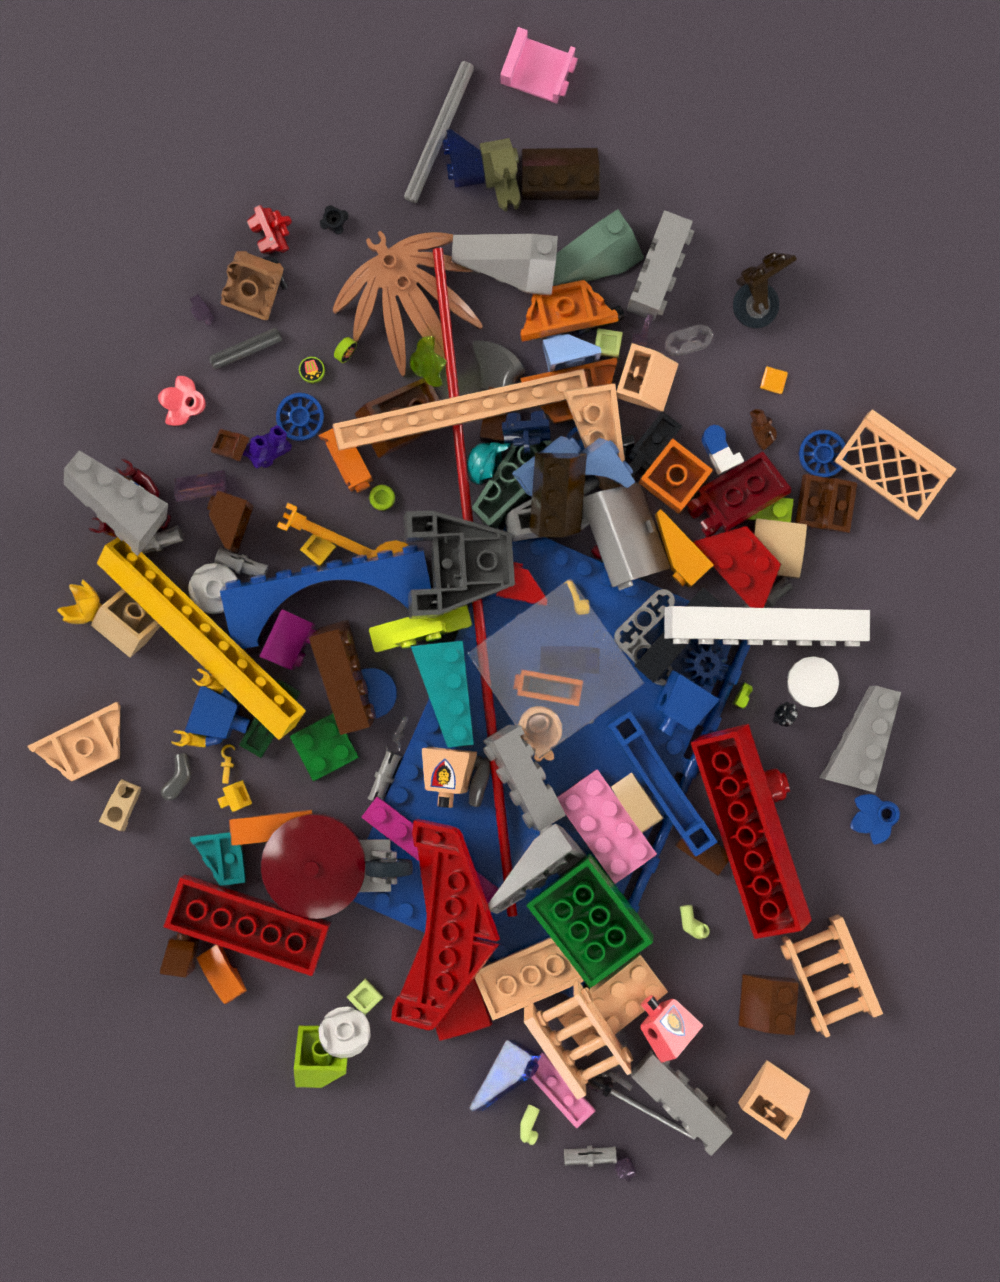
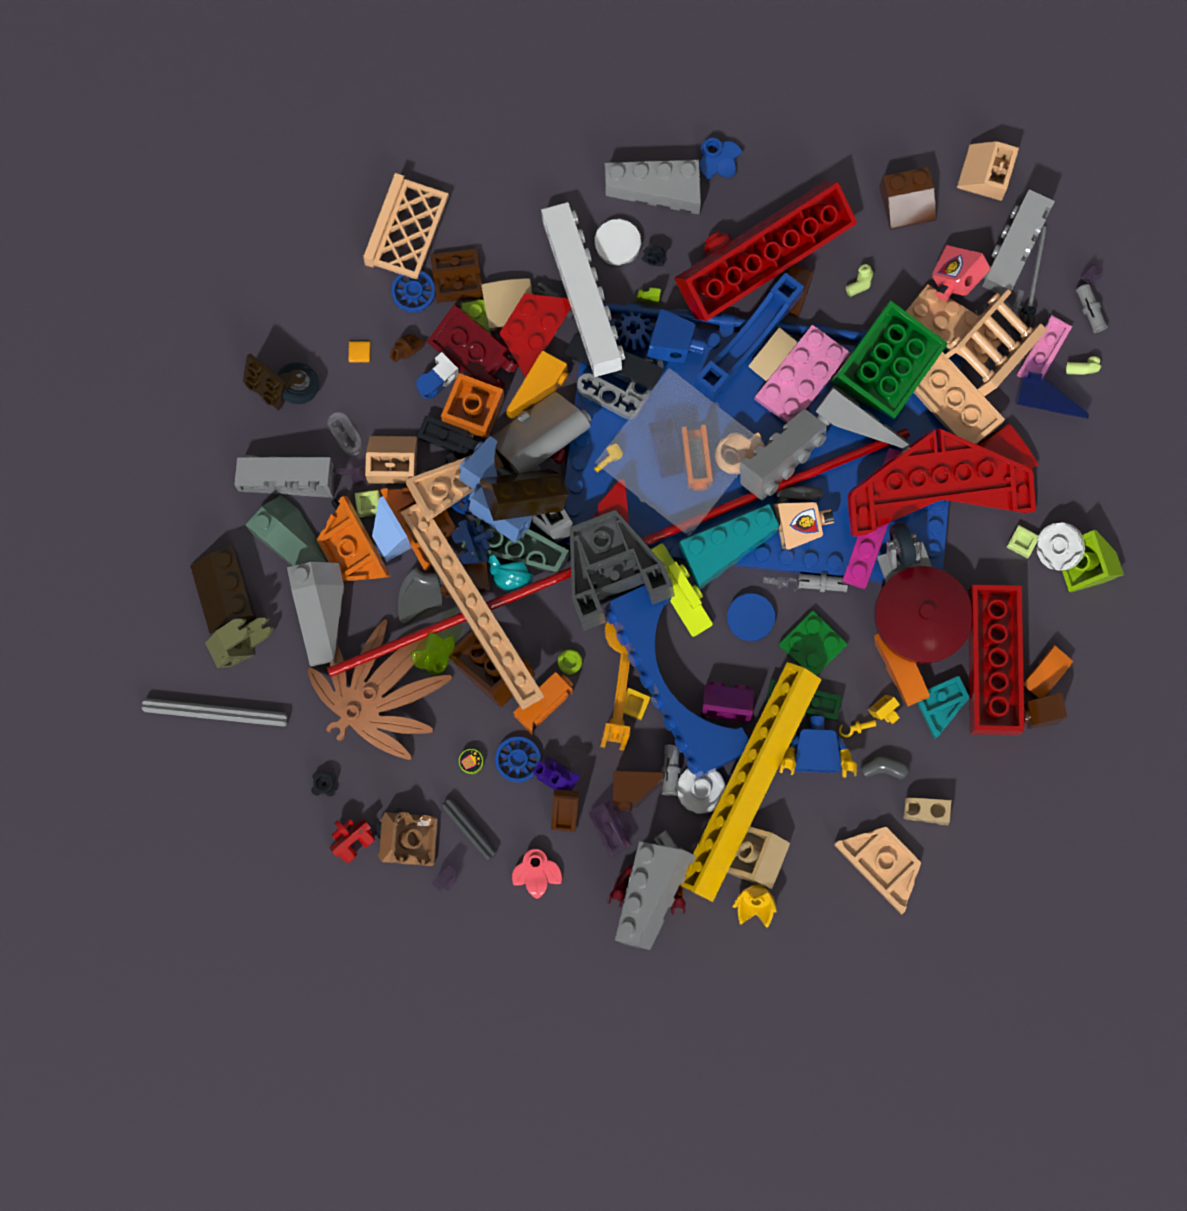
camera: 105 degrees left, 10 degrees down
(342, 676) = (744, 643): reddish brown wedge -> none
(345, 349) = (443, 735): lime tile -> none
(466, 161) = (235, 679): clear blue slope -> none
(537, 68) = (130, 639): bright pink panel -> none
(855, 979) = (862, 133): light nougat fence -> none

